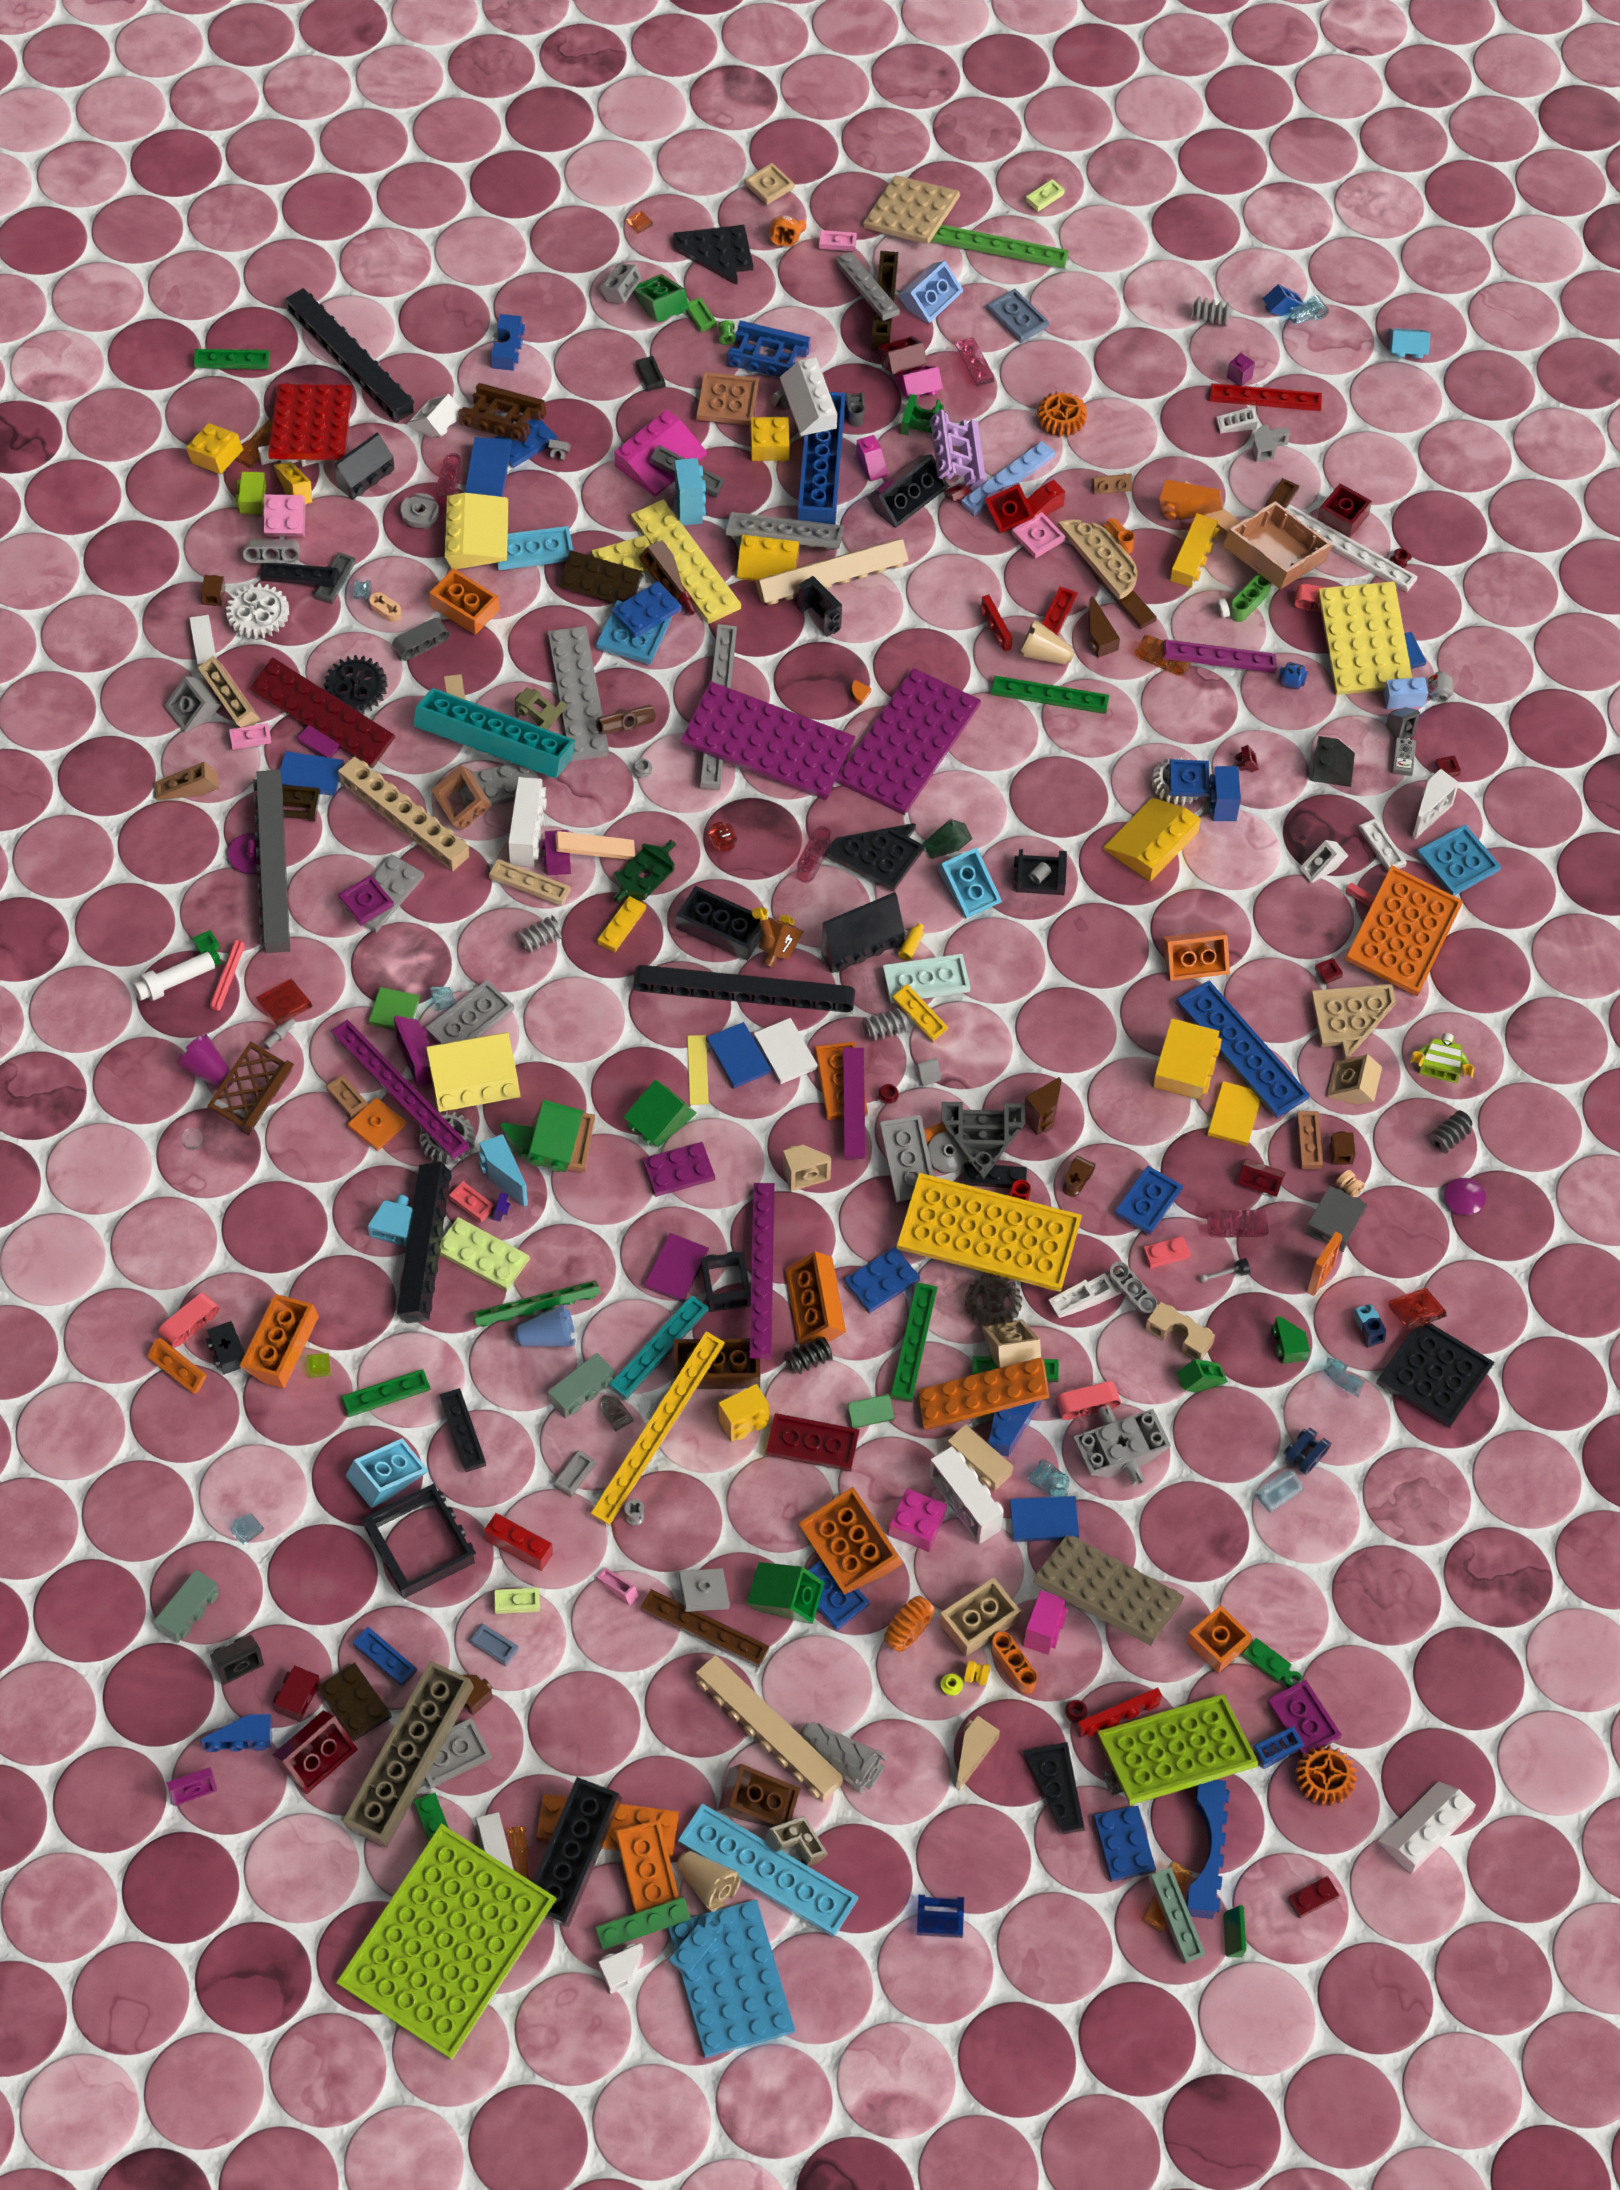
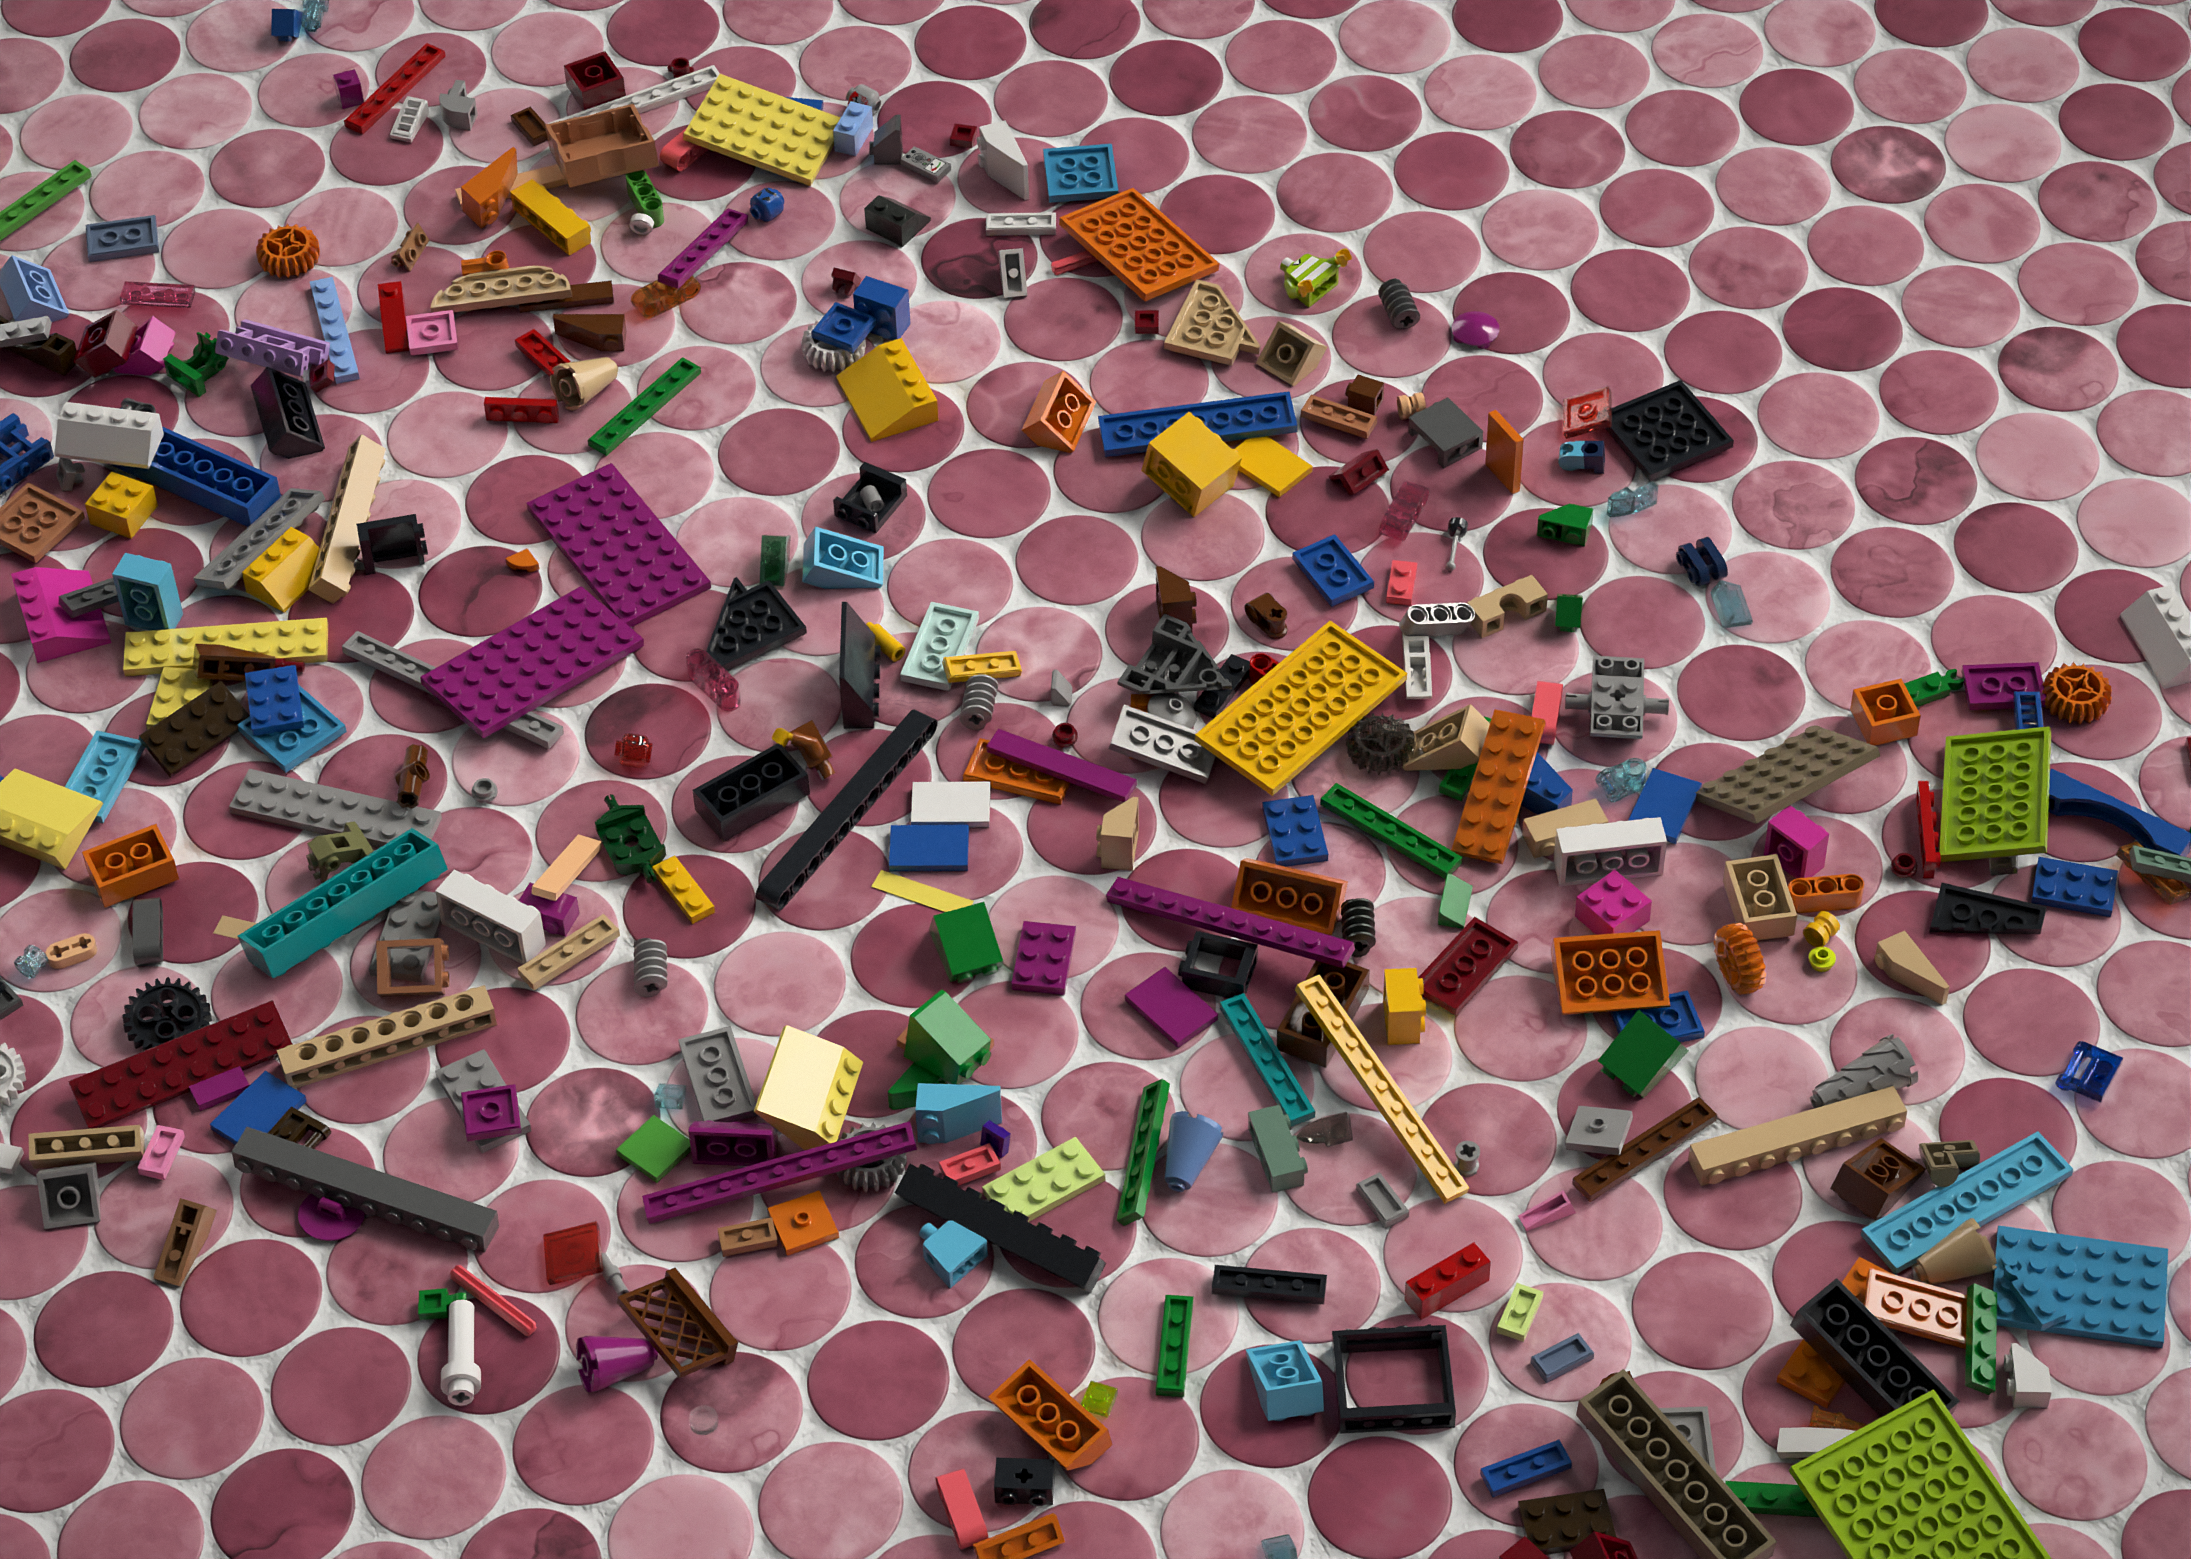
camera: 60 degrees left, 10 degrees down
(871, 457) = (217, 428): dark pink slope -> none
(1009, 507) = (381, 336): red slope -> none
(1211, 310) = (252, 80): light grey piece -> none

